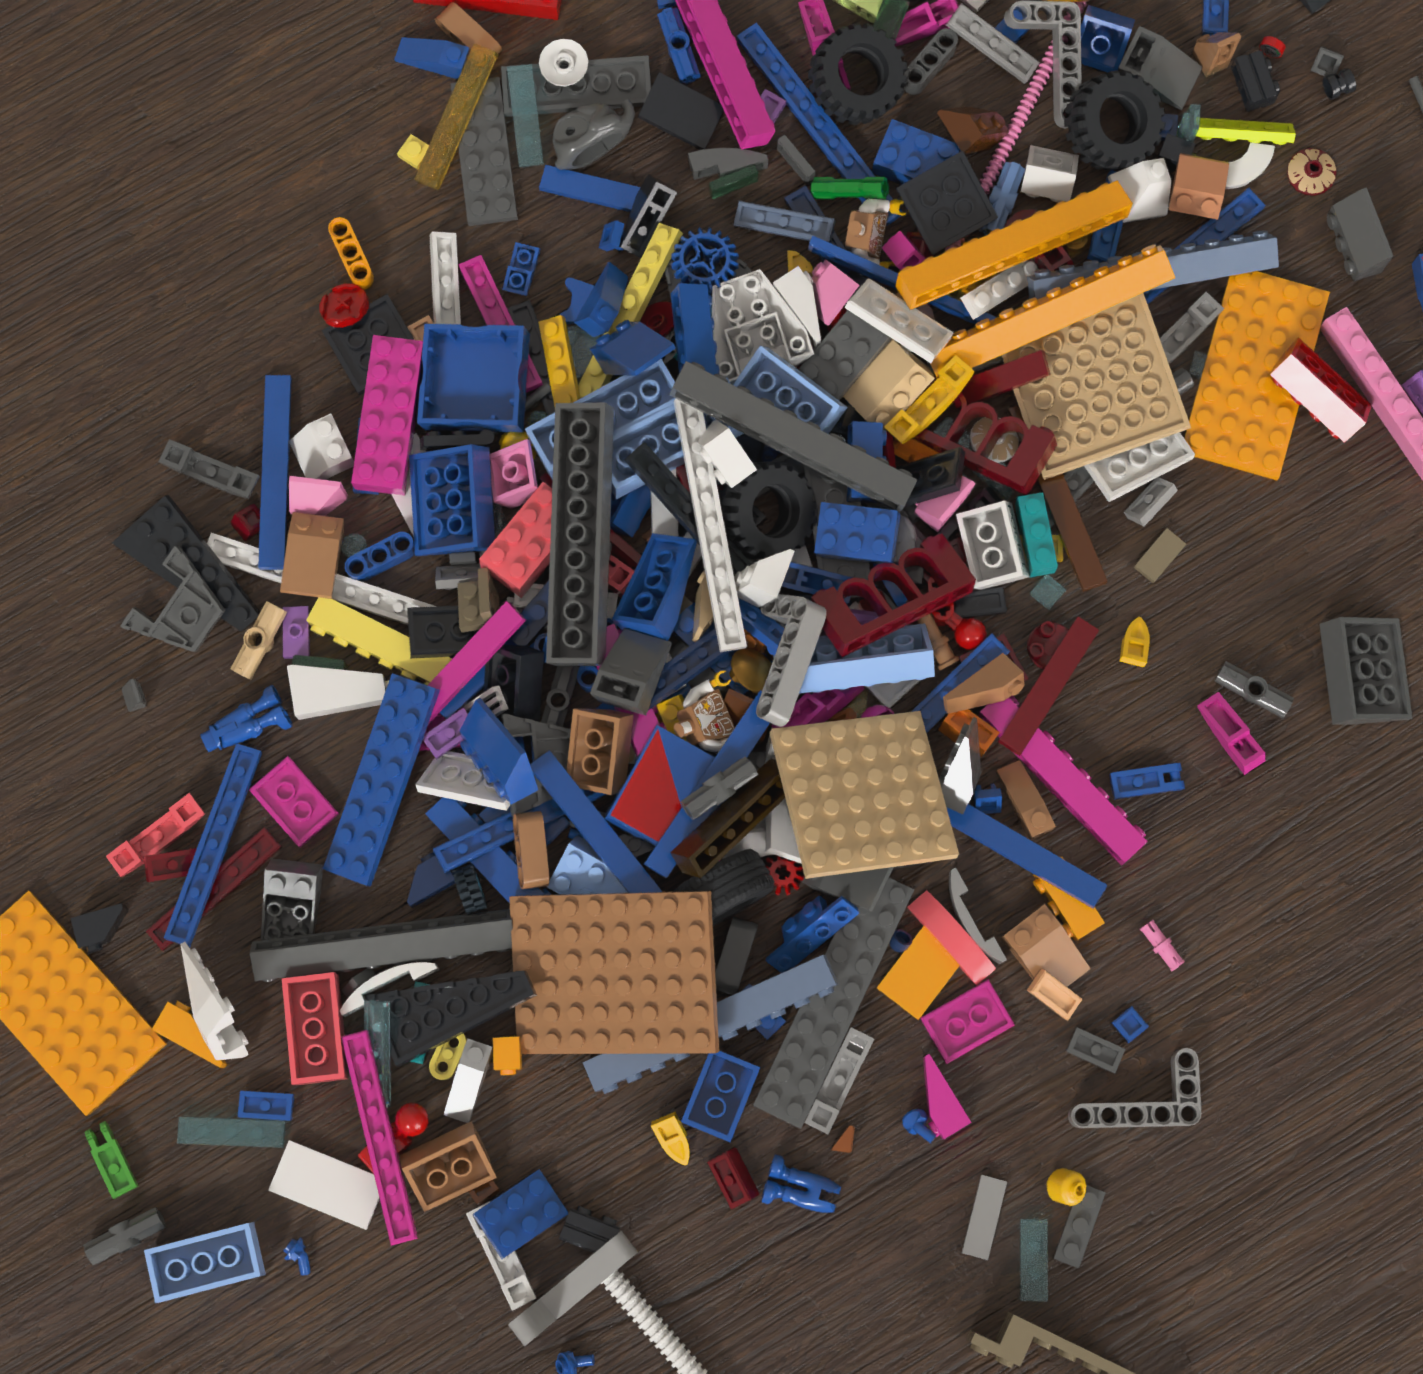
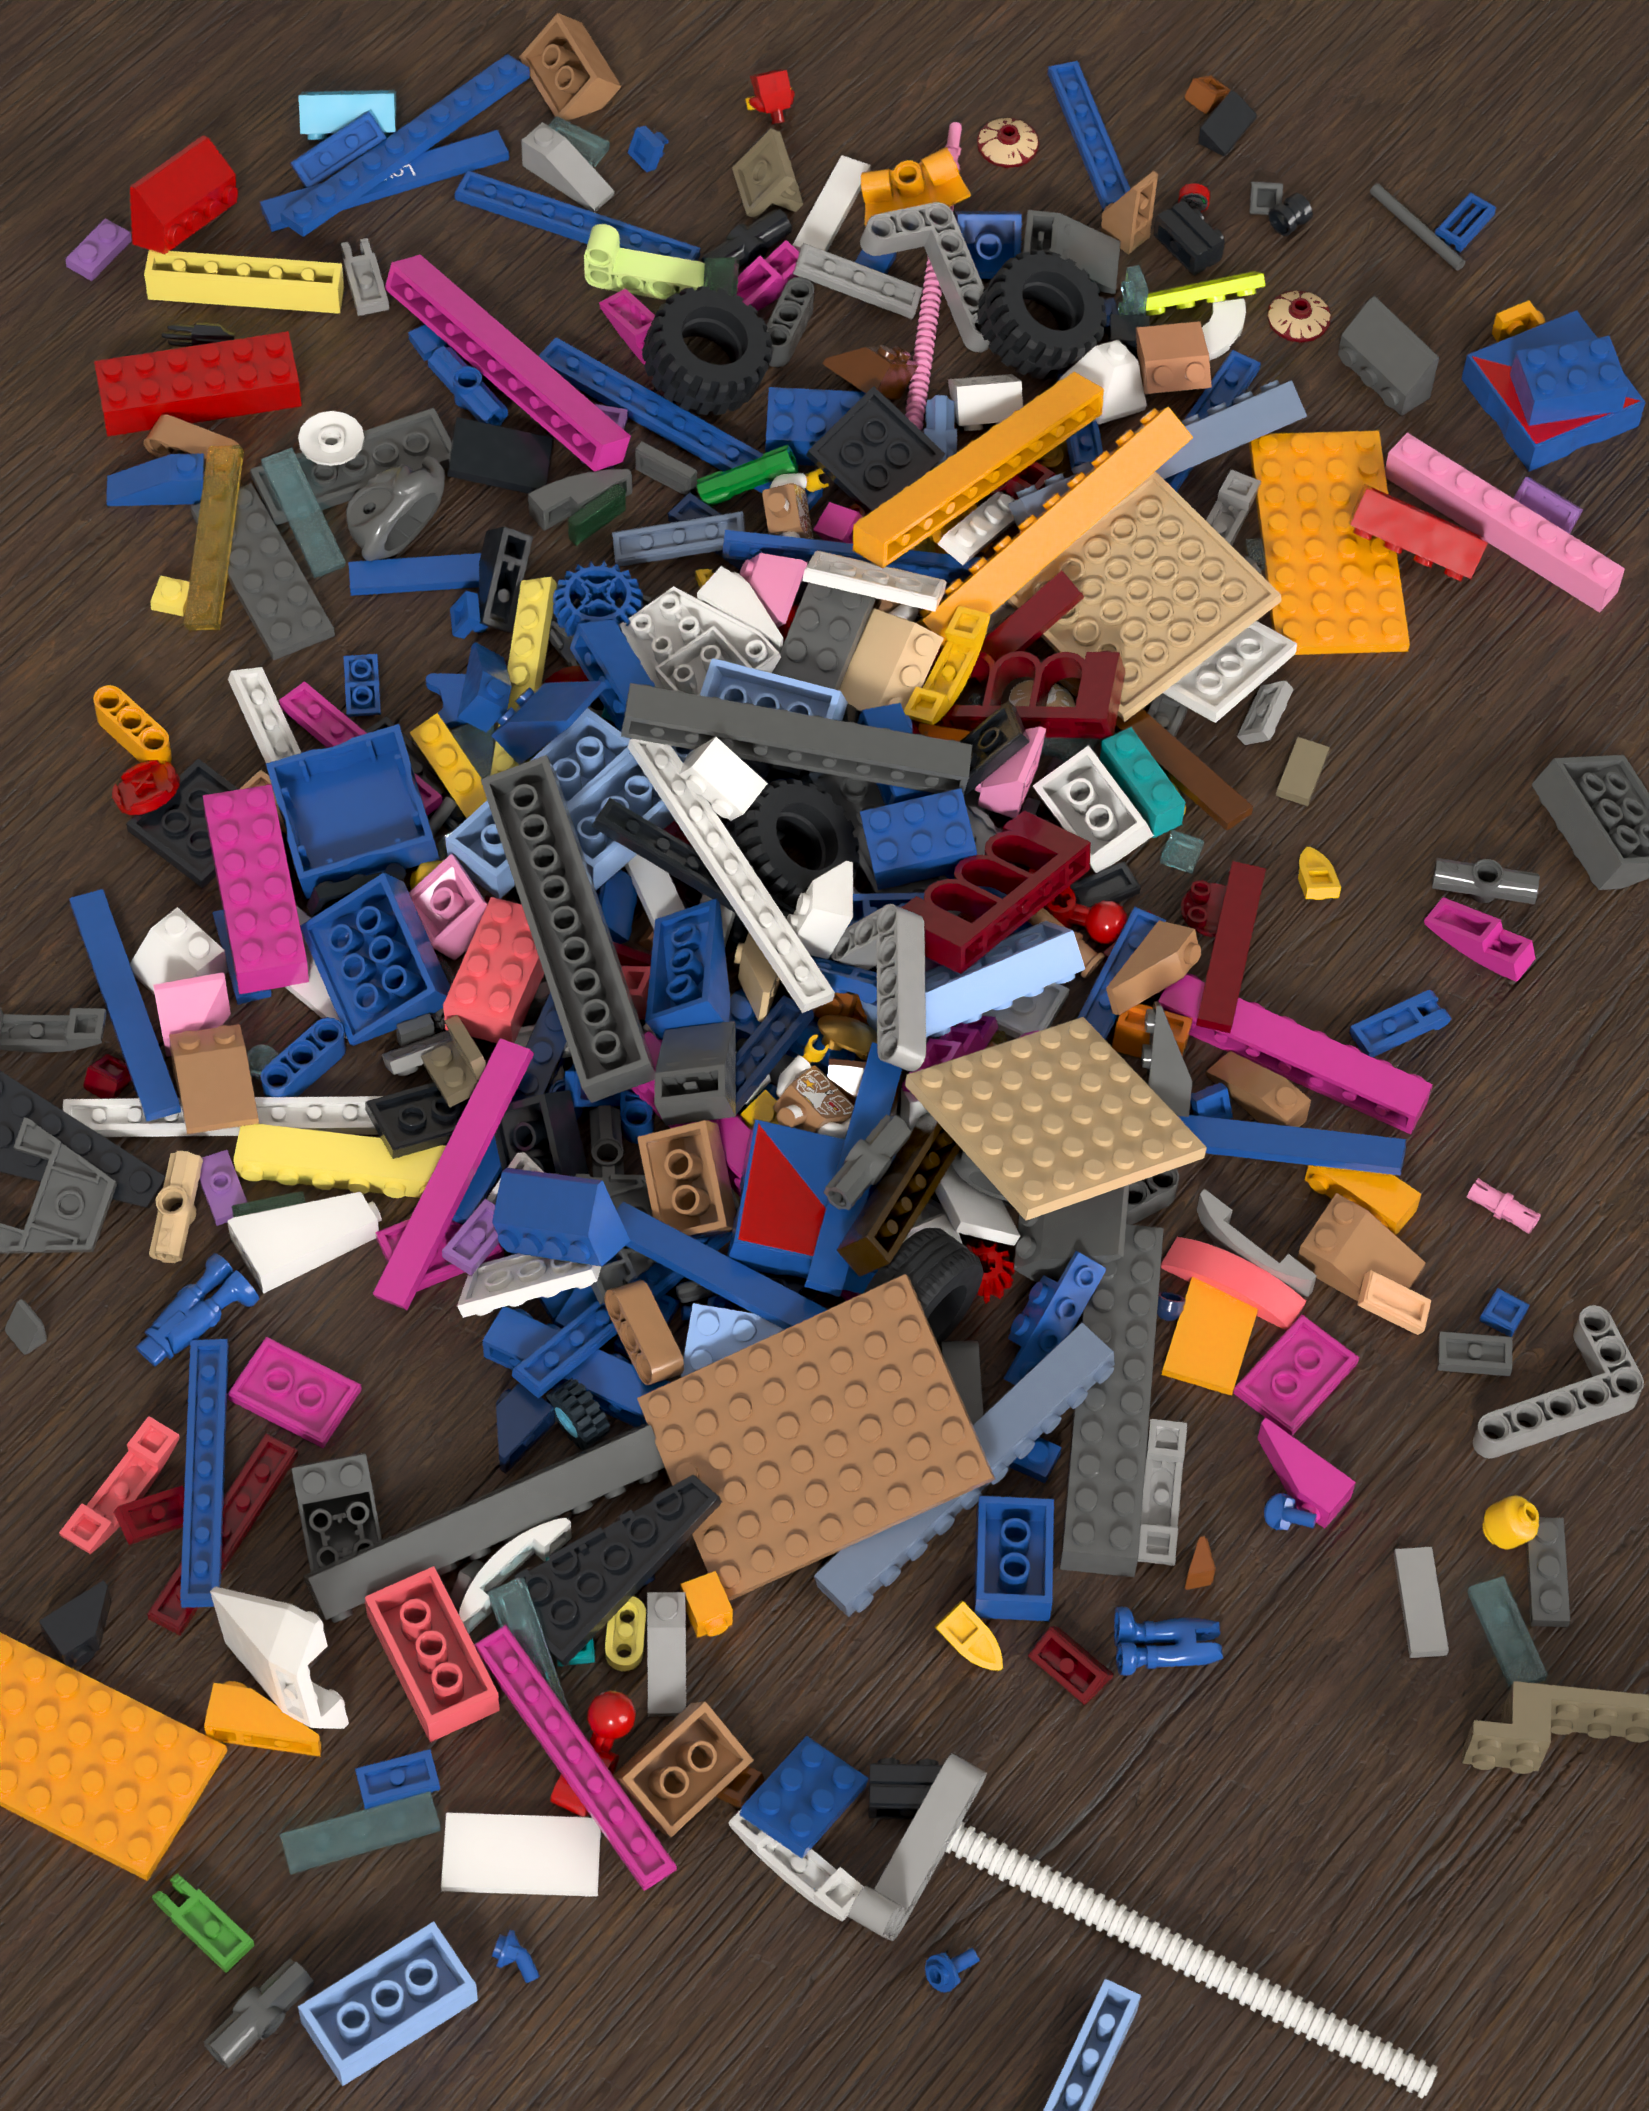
camera: 25 degrees left, 20 degrees down
(381, 779) = (407, 1319): blue plate -> none

